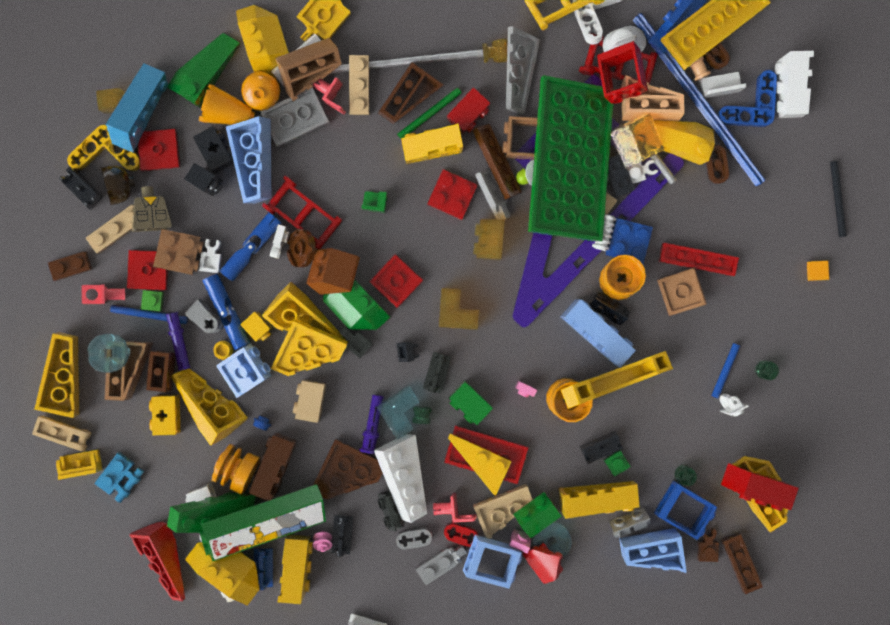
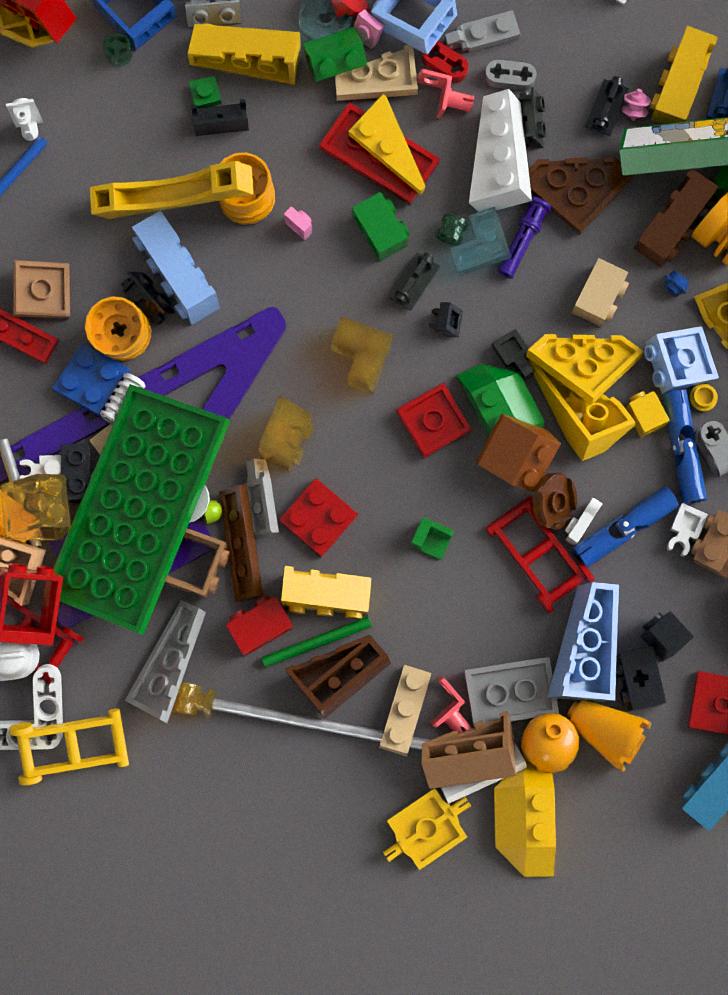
camera: 170 degrees left, 10 degrees down
(203, 69) = (631, 798): green wedge -> none

